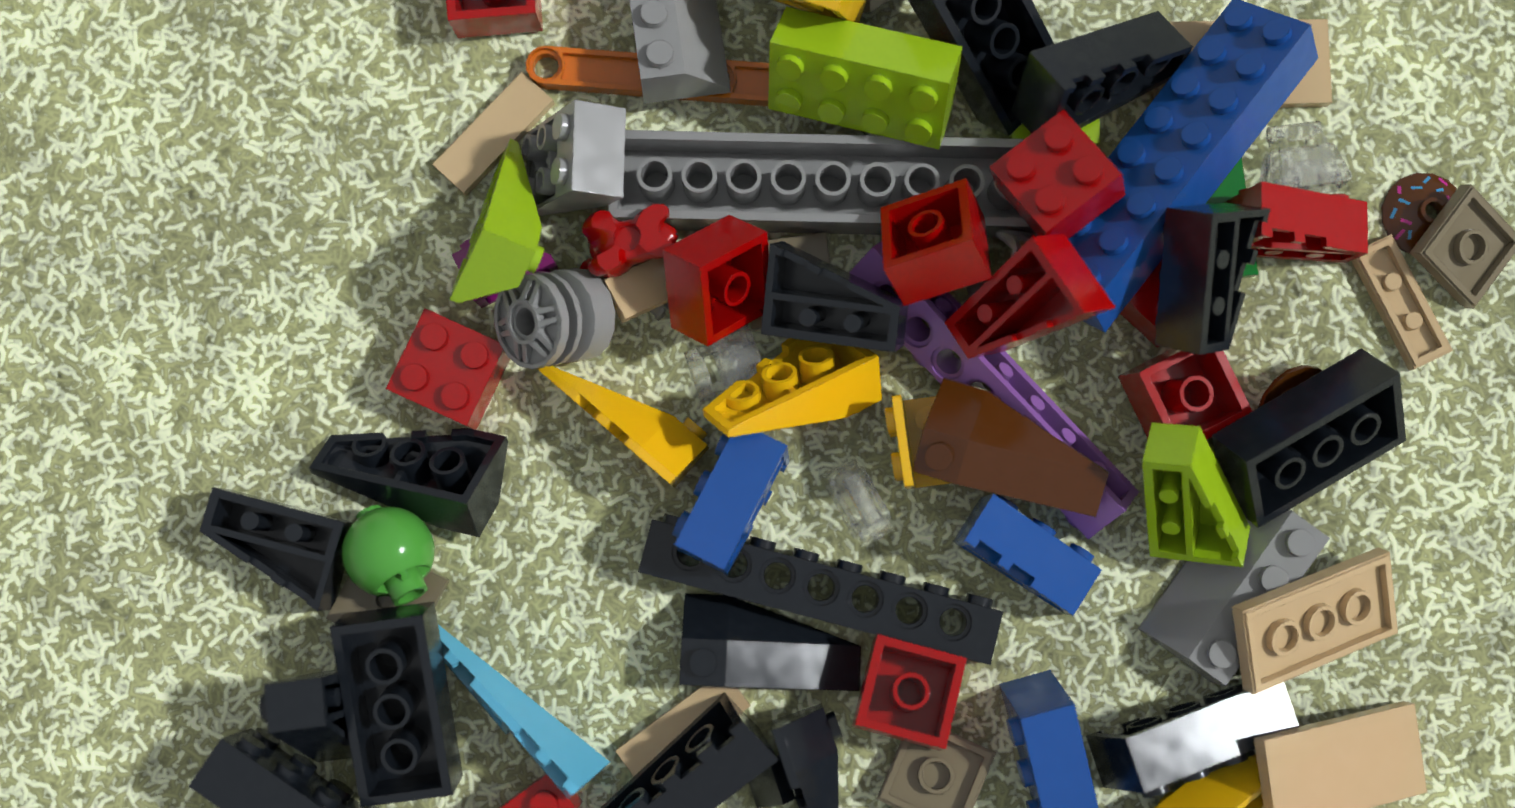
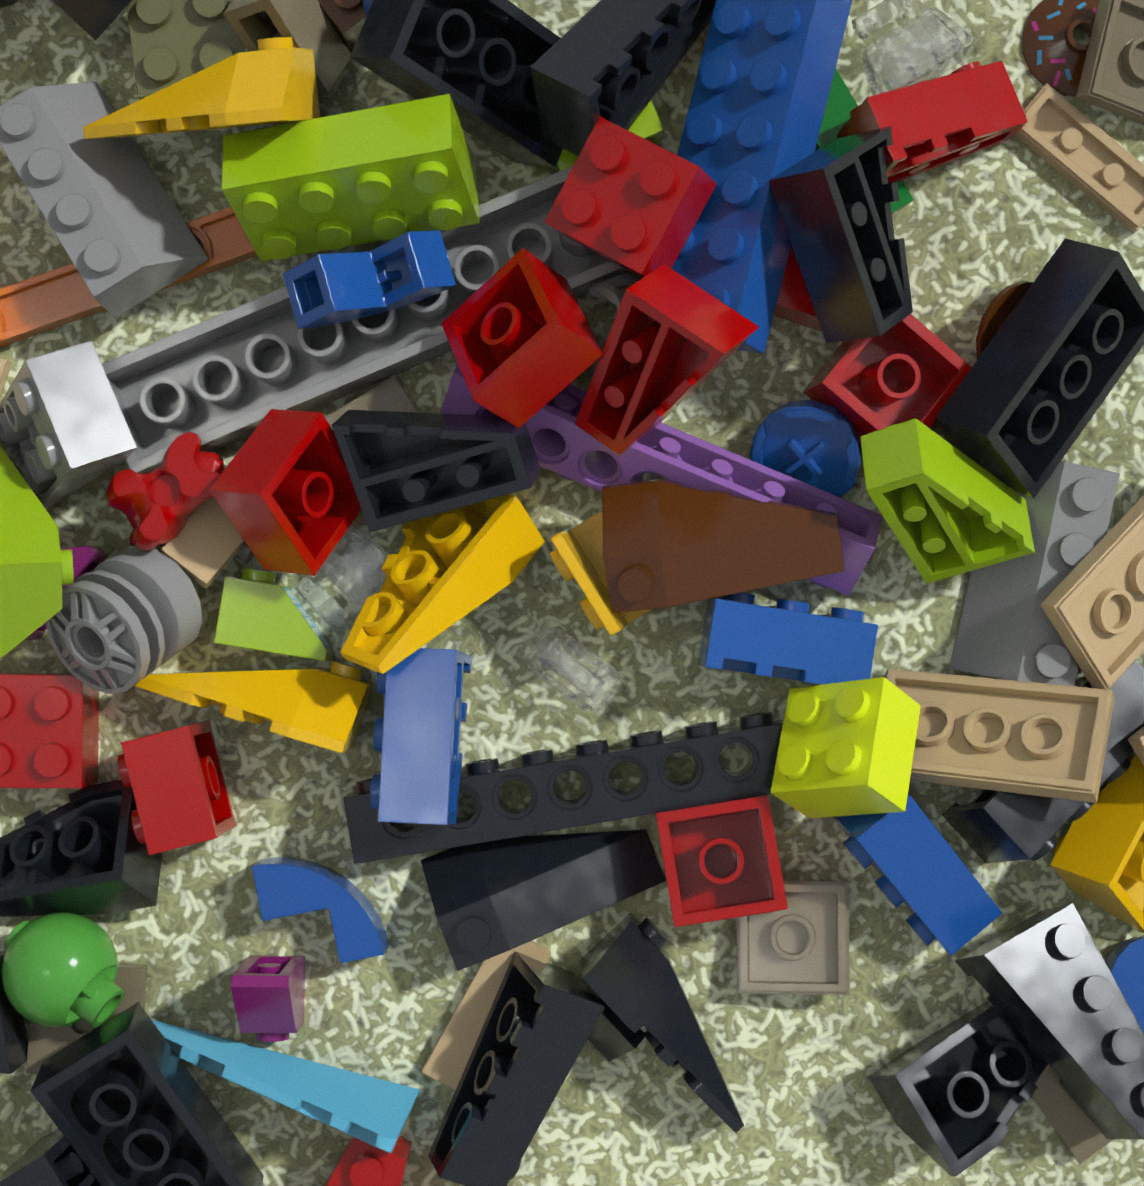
camera: 25 degrees left, 5 degrees up
(530, 643) = (269, 996): none -> magenta slope
(534, 455) = (176, 787): none -> red brick
(590, 572) = (301, 886): none -> blue brick
(654, 365) = (267, 618): none -> lime slope
(836, 155) = (363, 284): none -> blue brick
(1040, 649) = (846, 749): none -> neon yellow brick
(1107, 416) = (810, 445): none -> blue tile
(1153, 688) = (1008, 734): none -> tan tile

